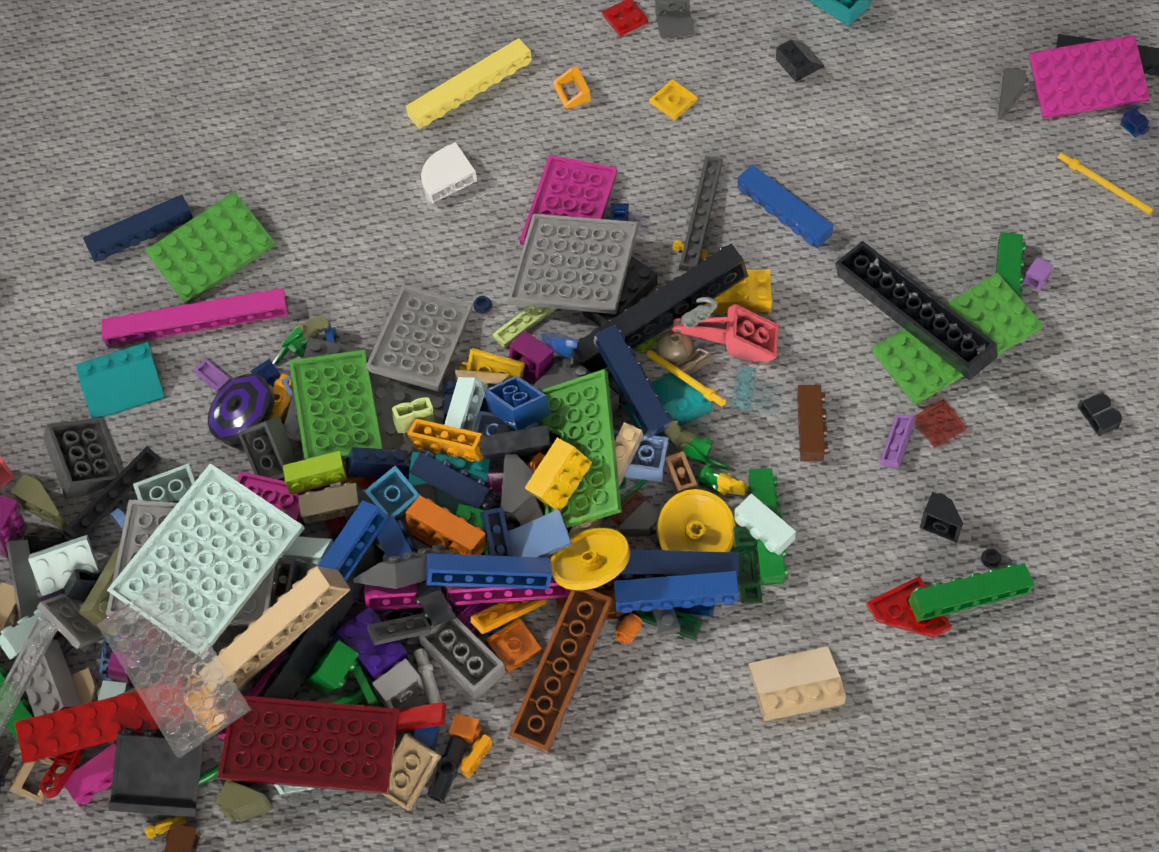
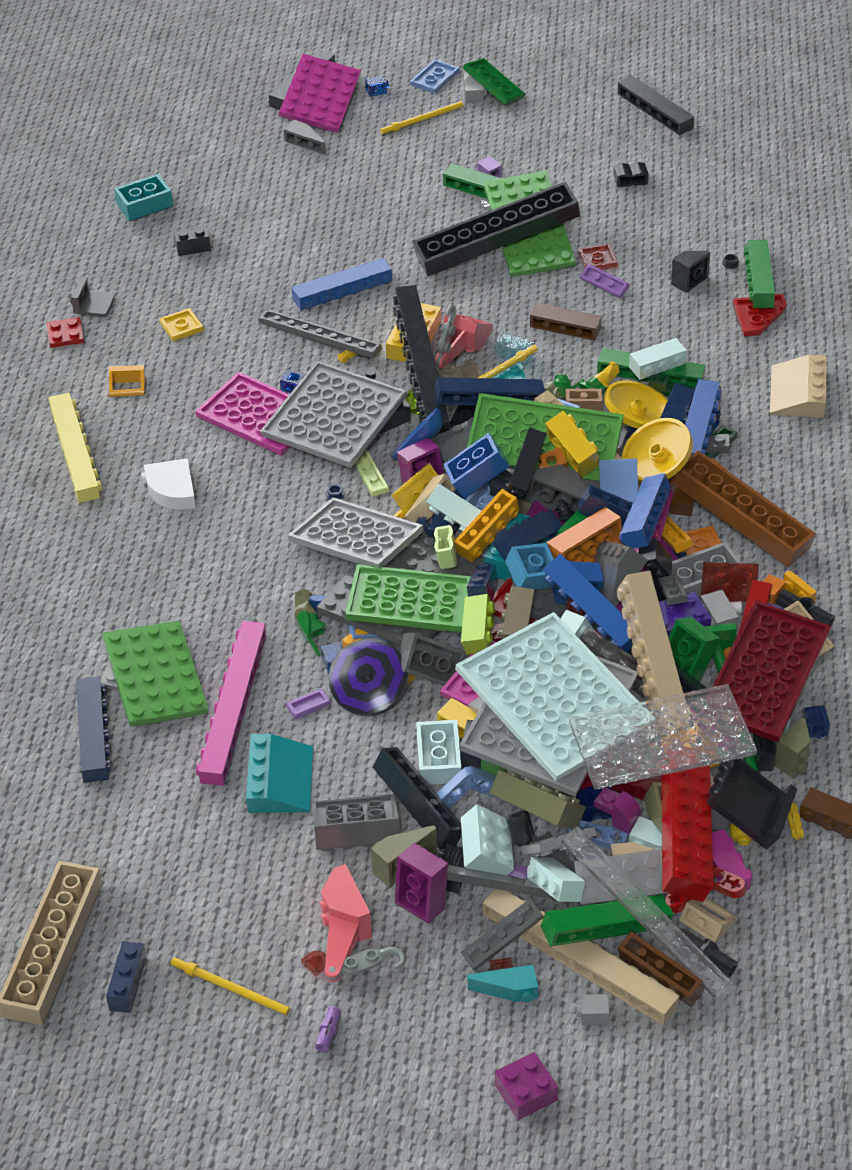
camera: 75 degrees left, 15 degrees down
(292, 815) = (817, 721): none -> clear blue brick
(448, 682) = (731, 577): none -> clear red plate

